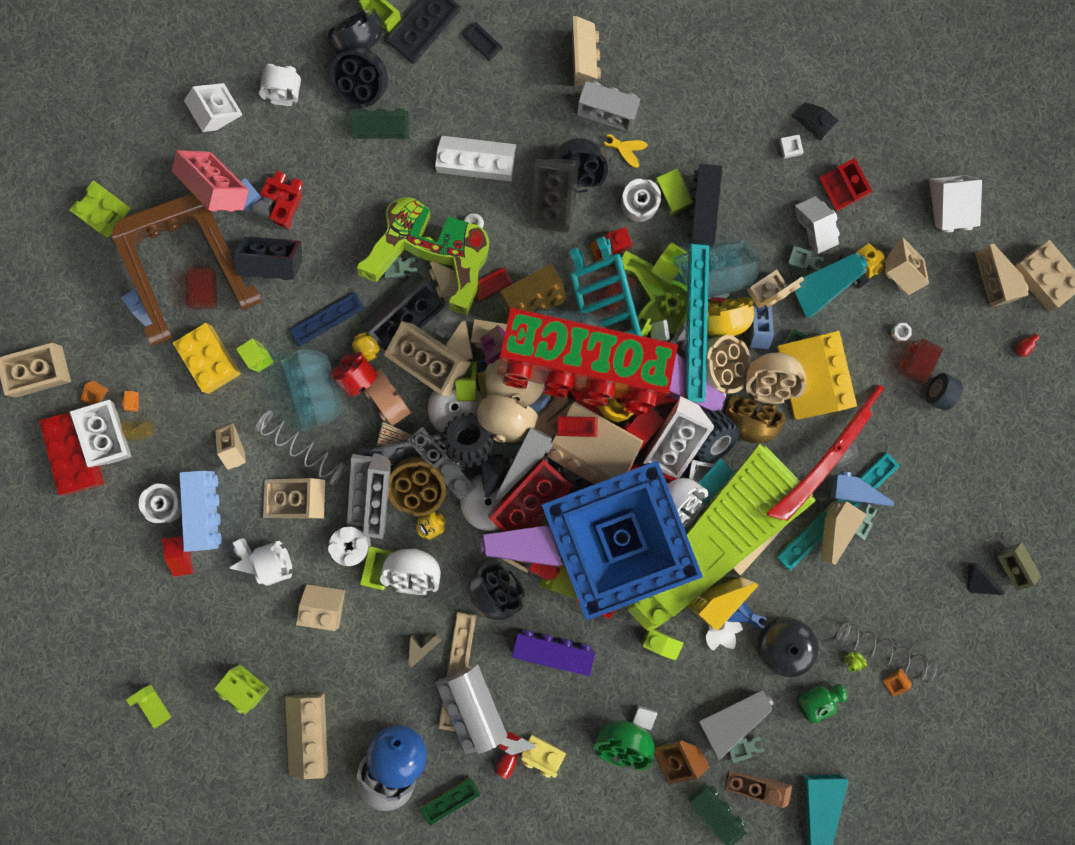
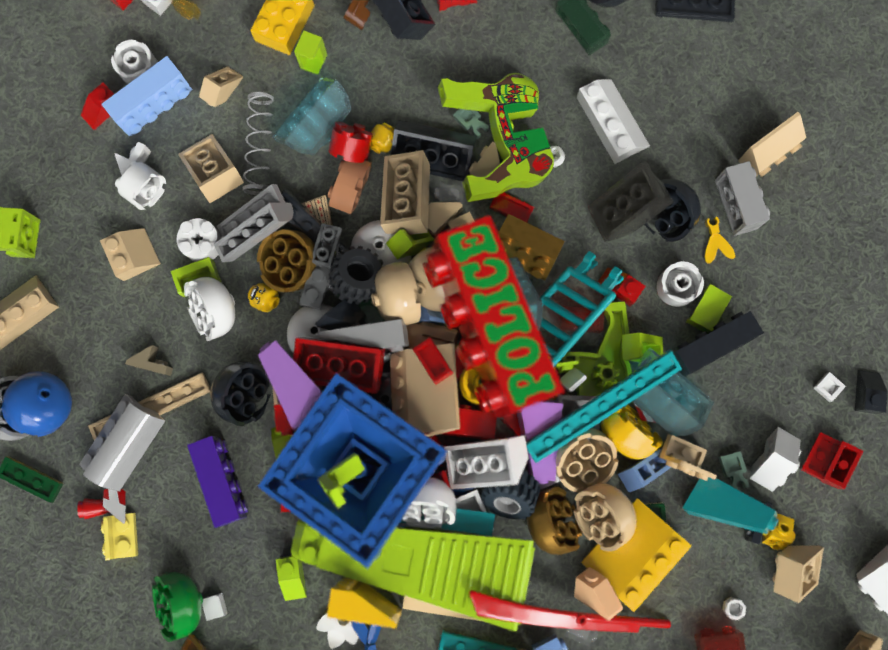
camera: 60 degrees right, 5 degrees down
(327, 319) = (384, 92): dark blue tile -> none
(482, 41) = (718, 57): black tile -> none
(619, 554) = (338, 476): none -> lime bracket
(826, 423) = (597, 593): none -> light nougat slope

